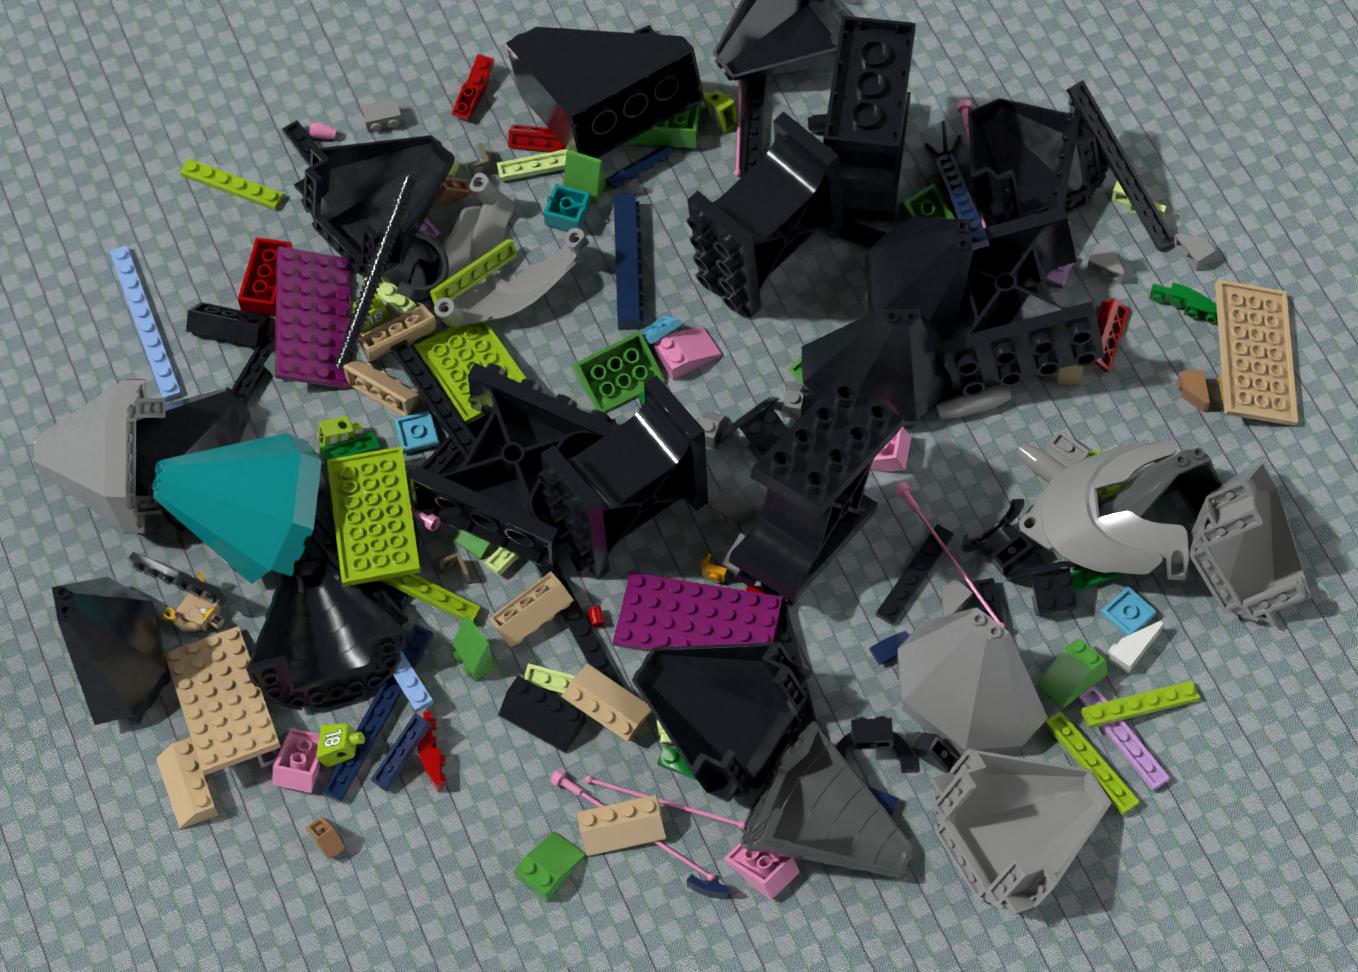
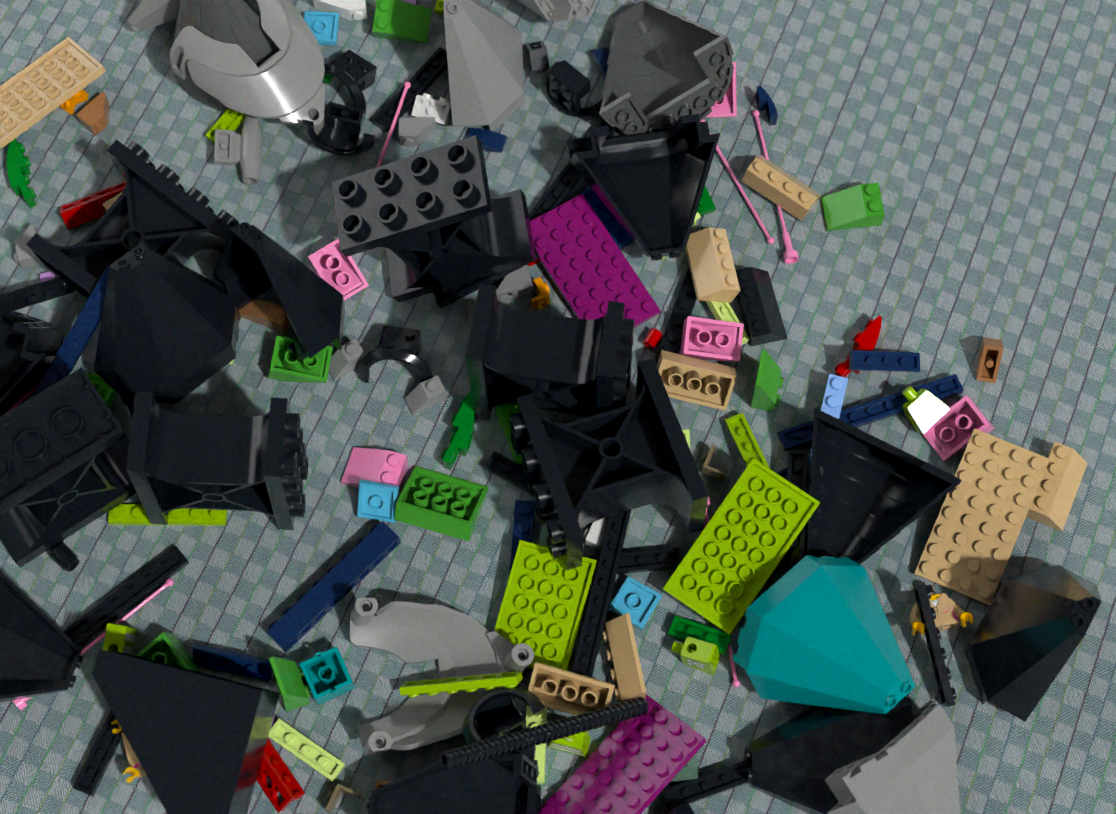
camera: 135 degrees left, 5 degrees up
(548, 646) = (711, 339): none -> bright pink slope

